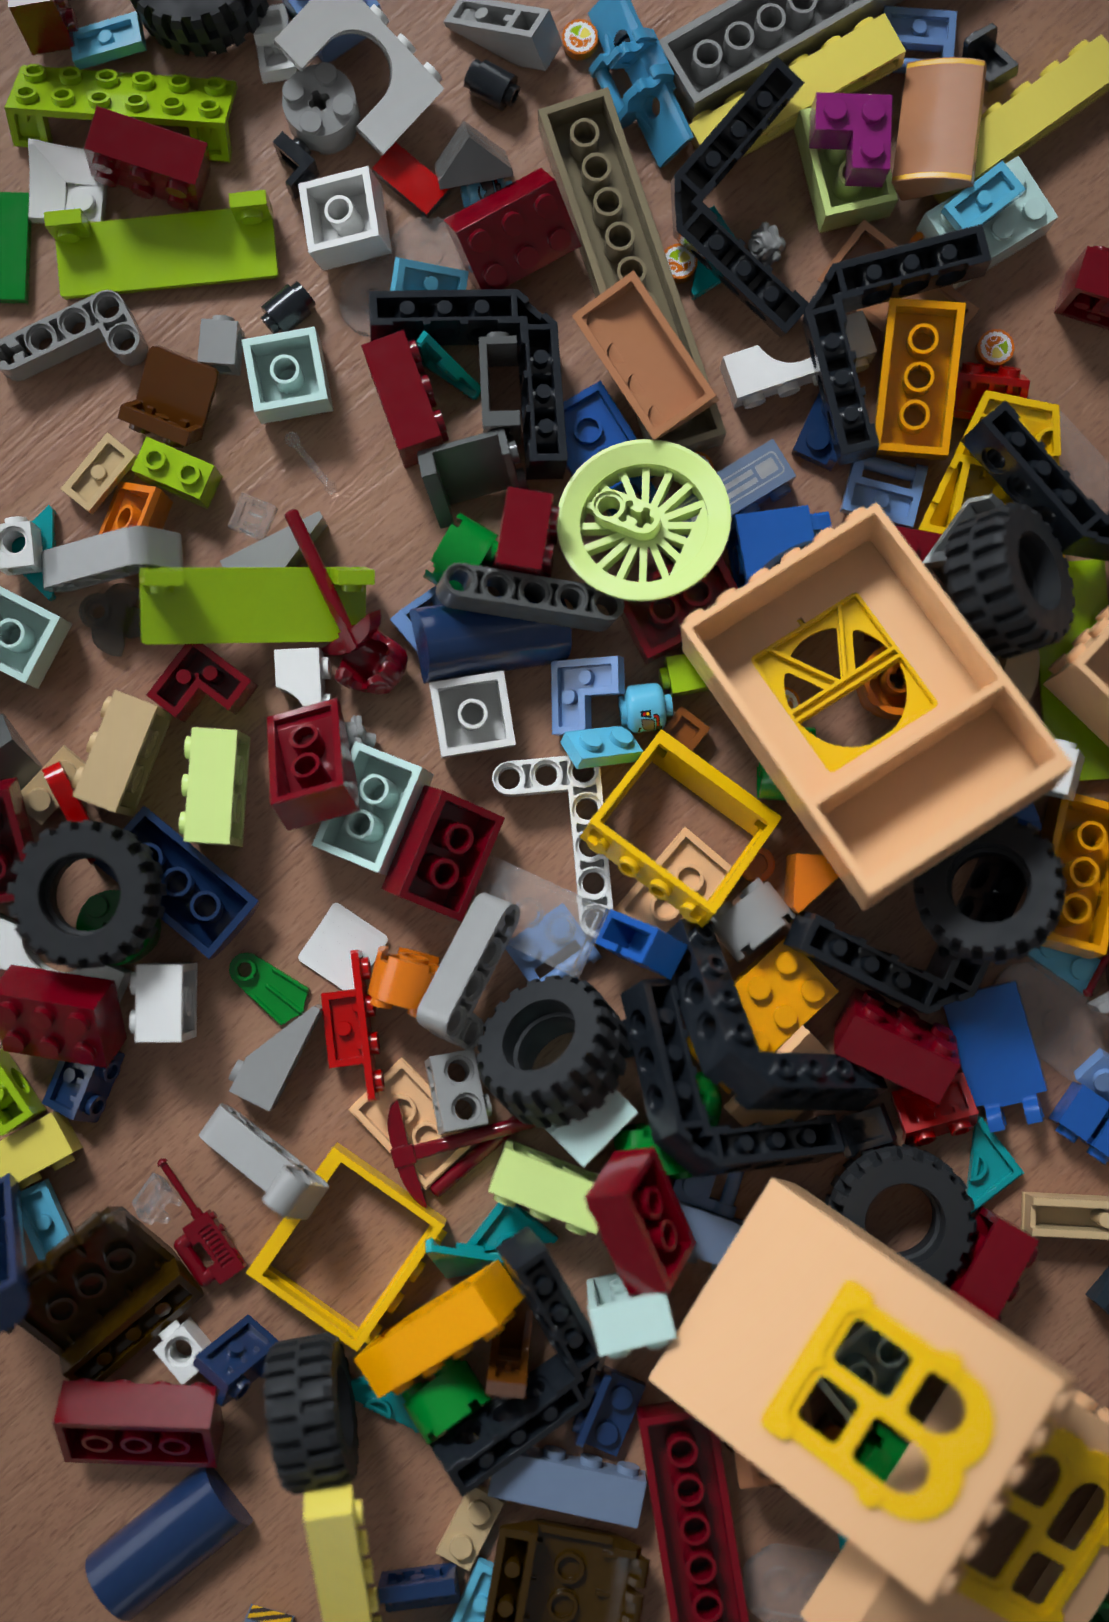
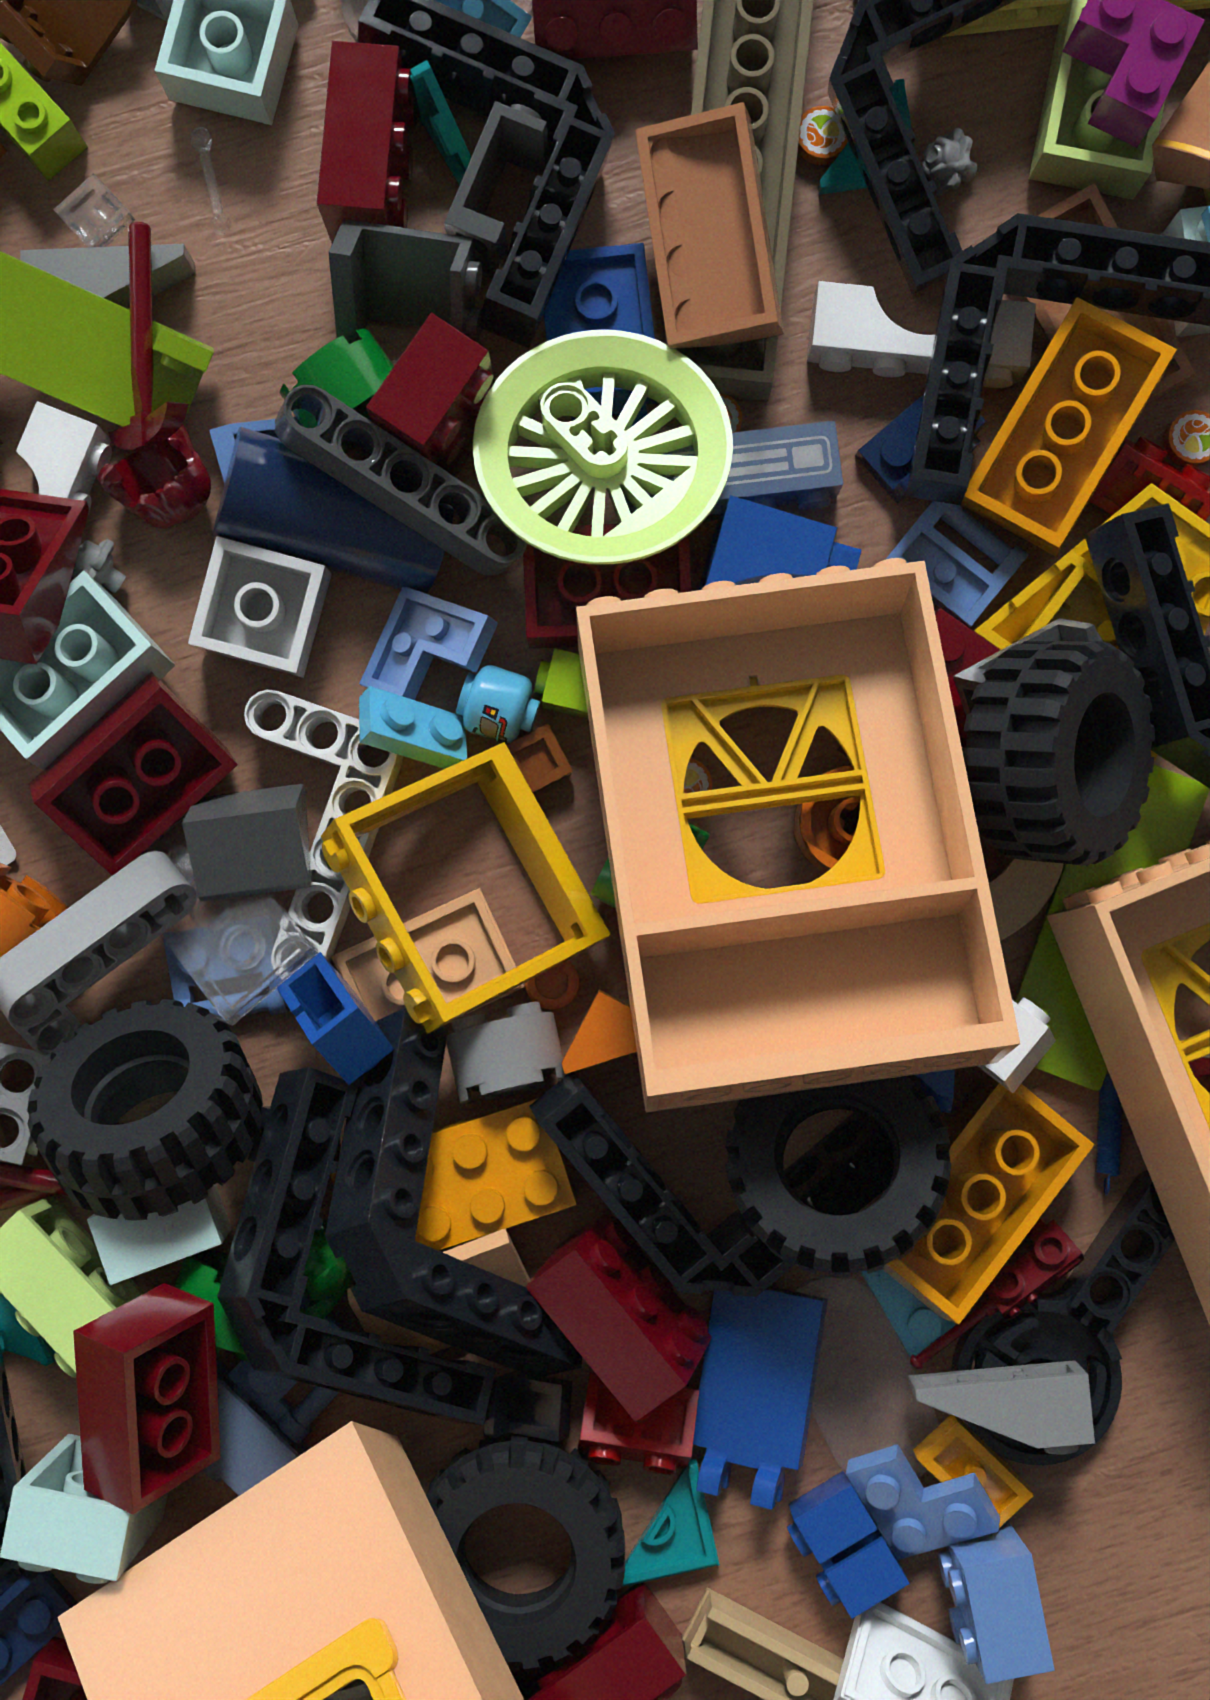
camera: 25 degrees right, 0 degrees up
(535, 861) = (249, 842): none -> dark grey slope

